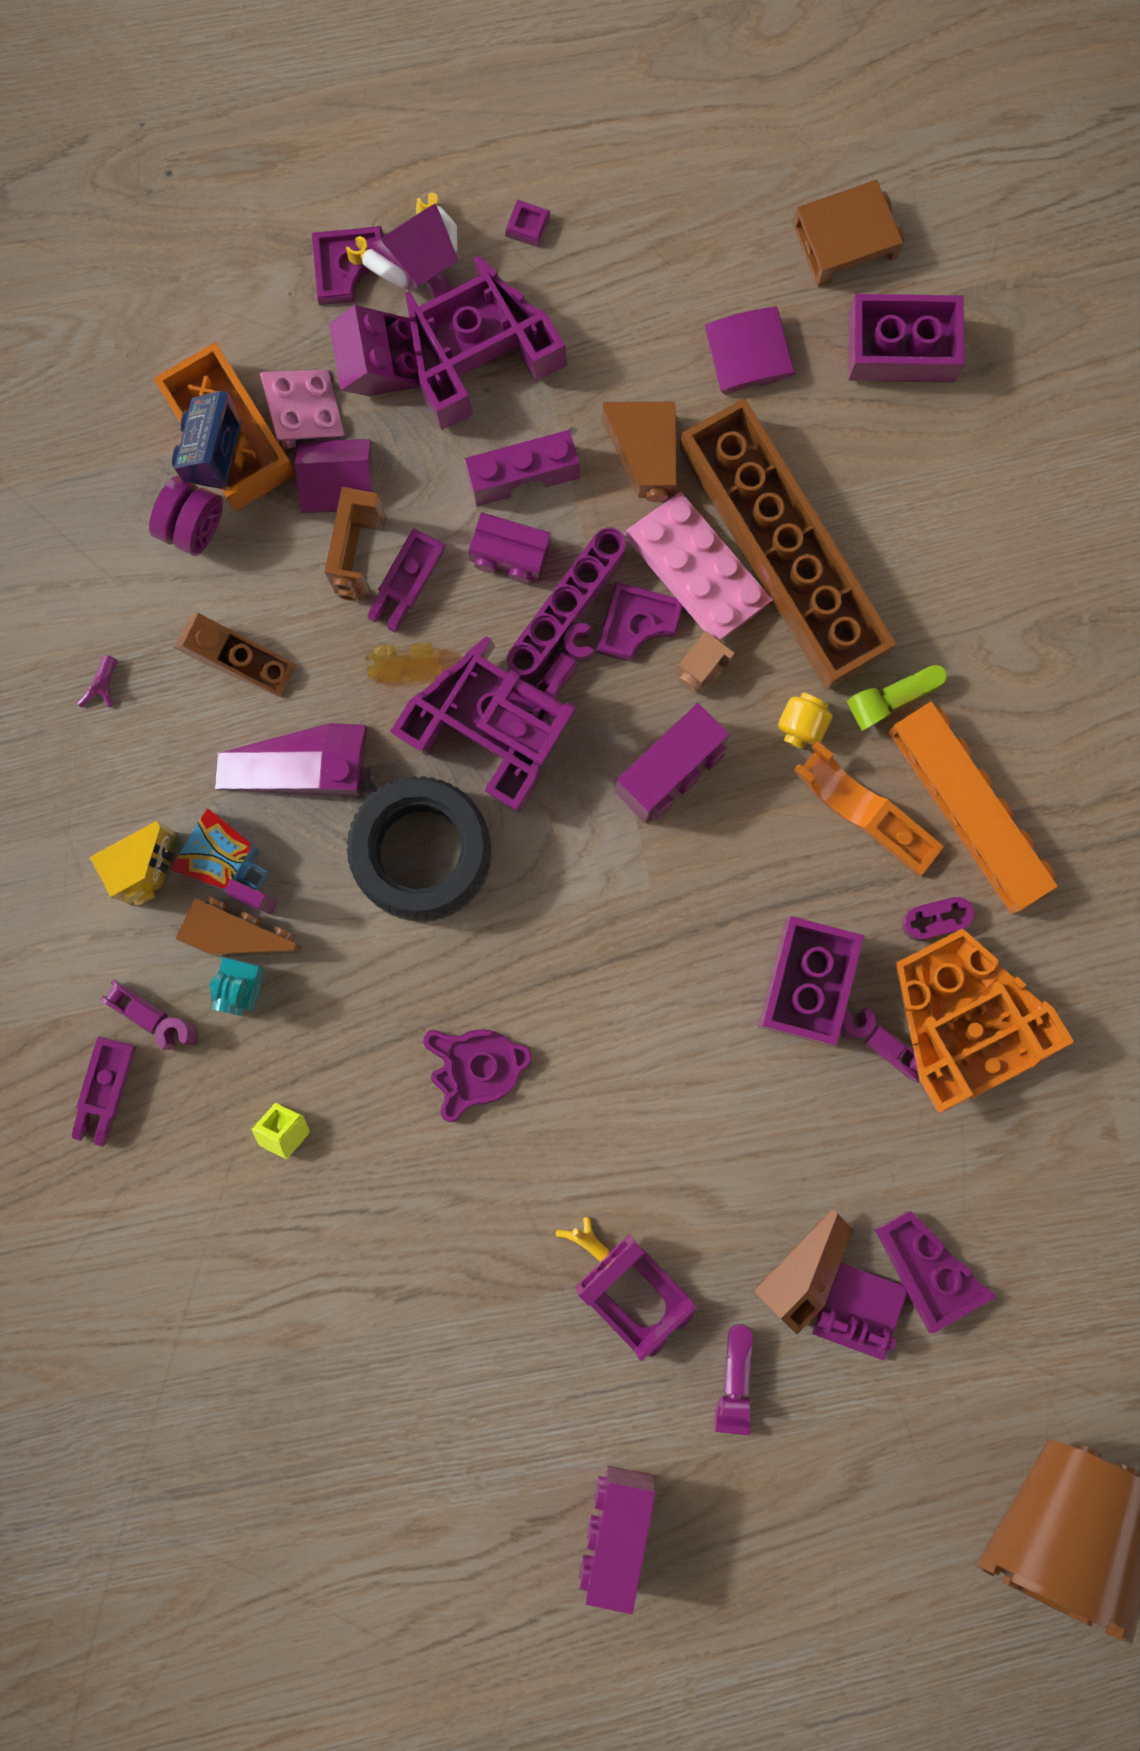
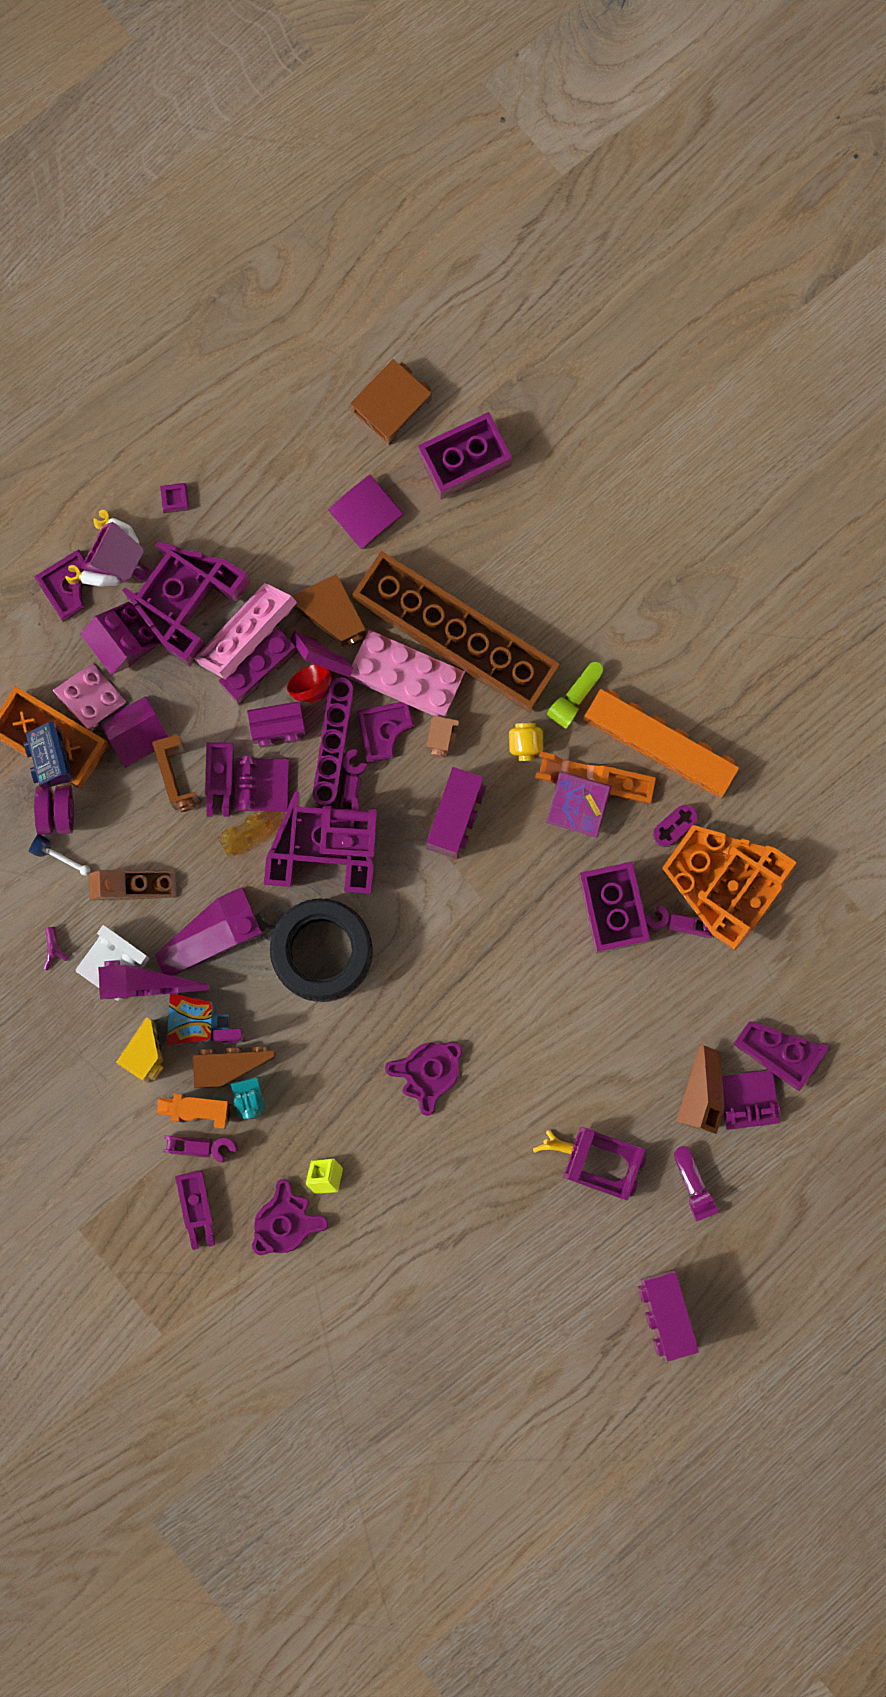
camera: 30 degrees left, 0 degrees up
(150, 555) = (41, 847): none -> hinge
(150, 960) = (194, 1109): none -> orange hips
(160, 737) = (108, 948): none -> white bracket
(164, 767) = (130, 981): none -> magenta wedge
(202, 1161) = (283, 1222): none -> magenta tile
(453, 612) = (261, 784): none -> magenta hinge
(529, 415) = (245, 630): none -> bright pink plate
(576, 520) = (310, 684): none -> red piece
(601, 484) = (318, 654): none -> magenta tile
(831, 831) = (579, 804): none -> magenta tile

